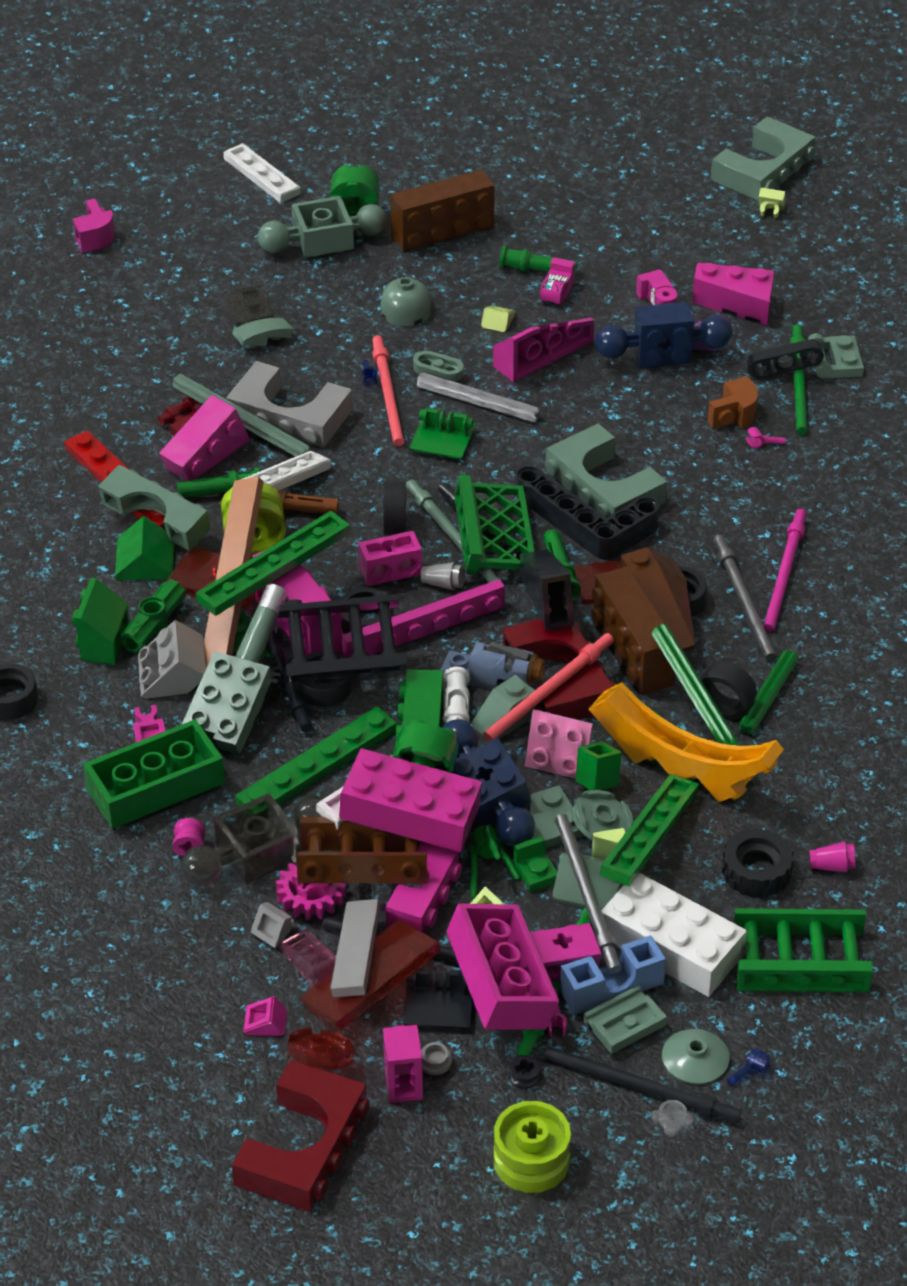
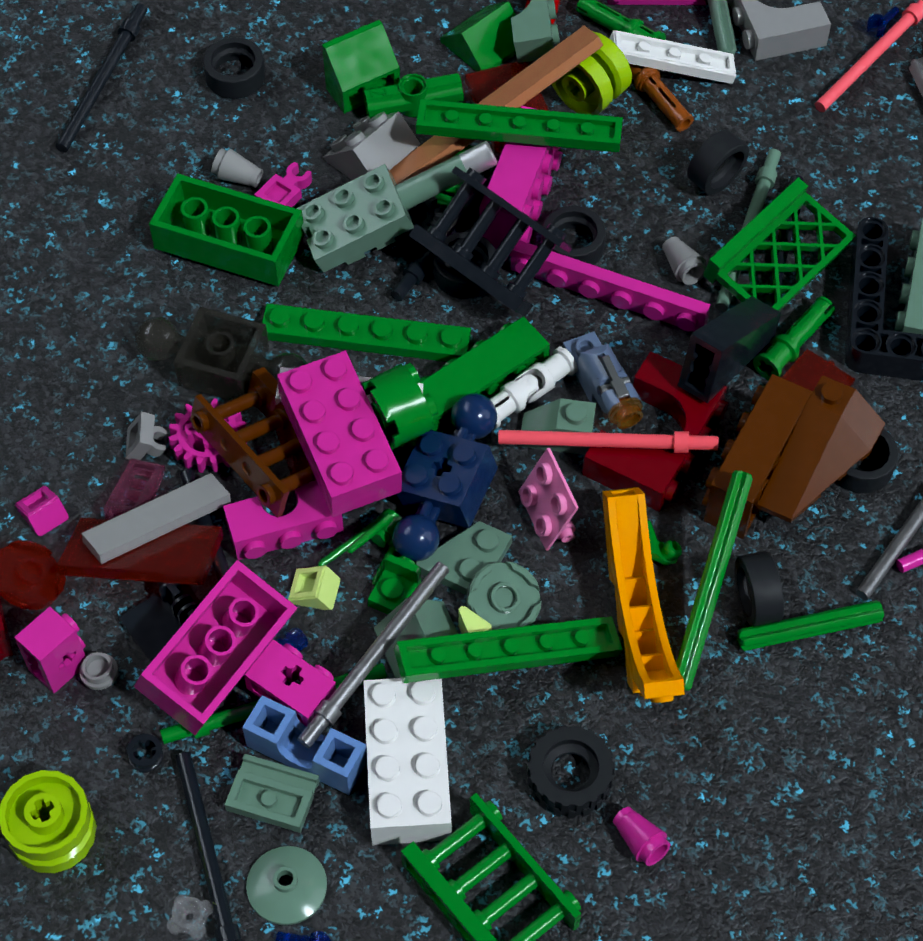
camera: 50 degrees right, 15 degrees up
(99, 743) = (236, 169): none -> light grey cone
(187, 834) = (184, 306): dark pink wheel -> none
(390, 558) = (652, 205): dark pink brick -> none
(442, 435) = (863, 130): green hinge -> none
(557, 1020) = (227, 731): dark pink hand -> none
(598, 766) = (555, 550): green brick -> none

